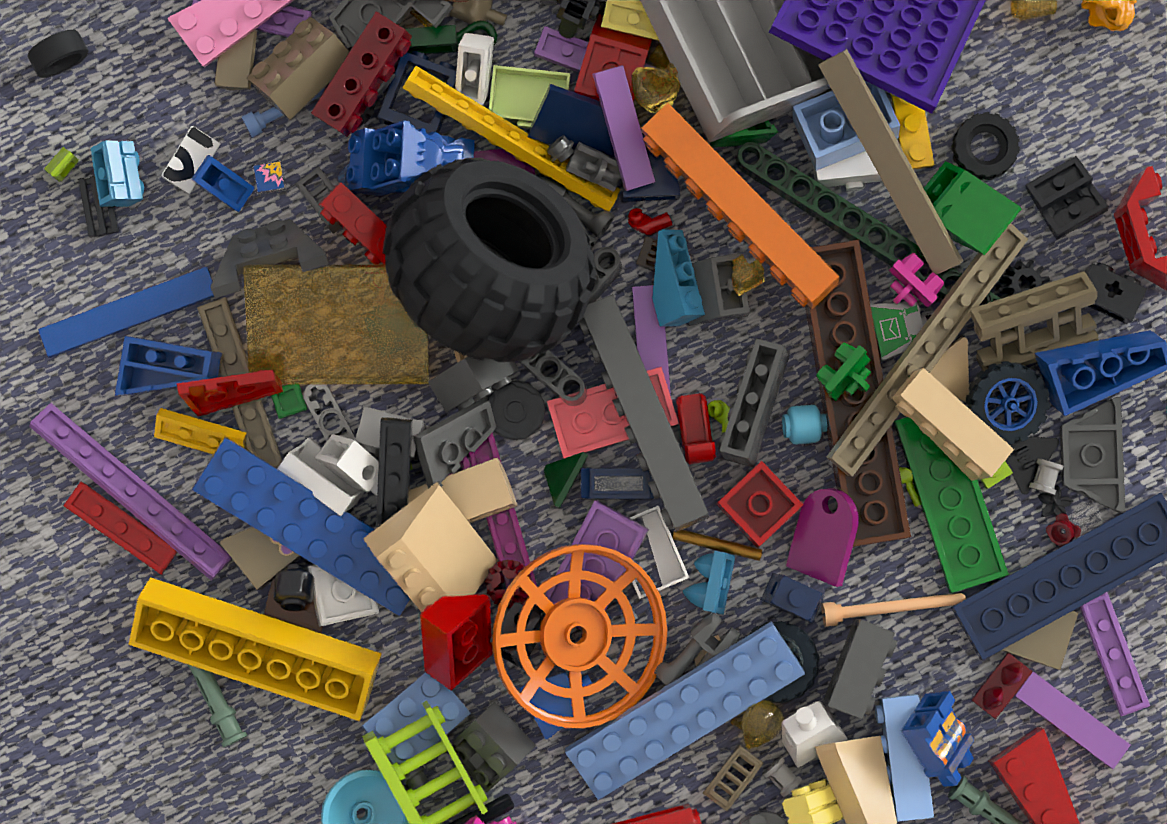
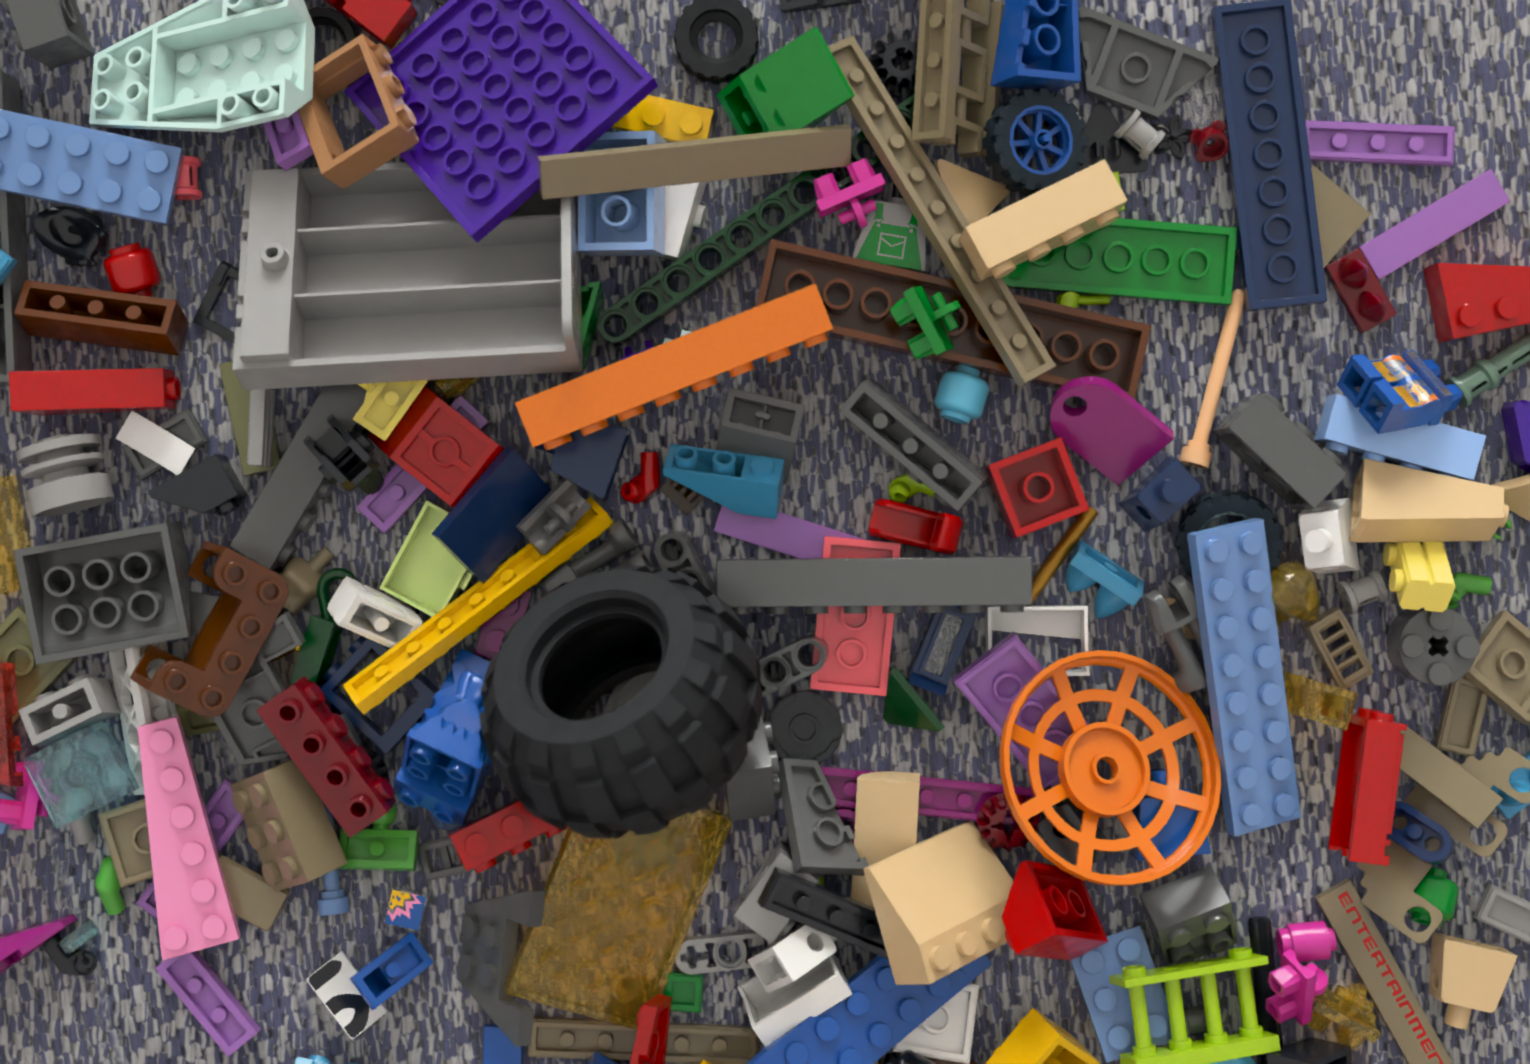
camera: 70 degrees left, 5 degrees up
(148, 63) = (209, 1000): none -> medium lavender plate
(307, 140) = (381, 847): none -> bright green plate
(560, 149) = (515, 551): dark grey plate -> none
(623, 127) = (520, 465): medium lavender tile -> none
(655, 87) = (487, 407): clear yellow piece -> none
(689, 773) = (1319, 700): none -> clear yellow slope
(746, 275) = (761, 393): clear yellow tile -> none

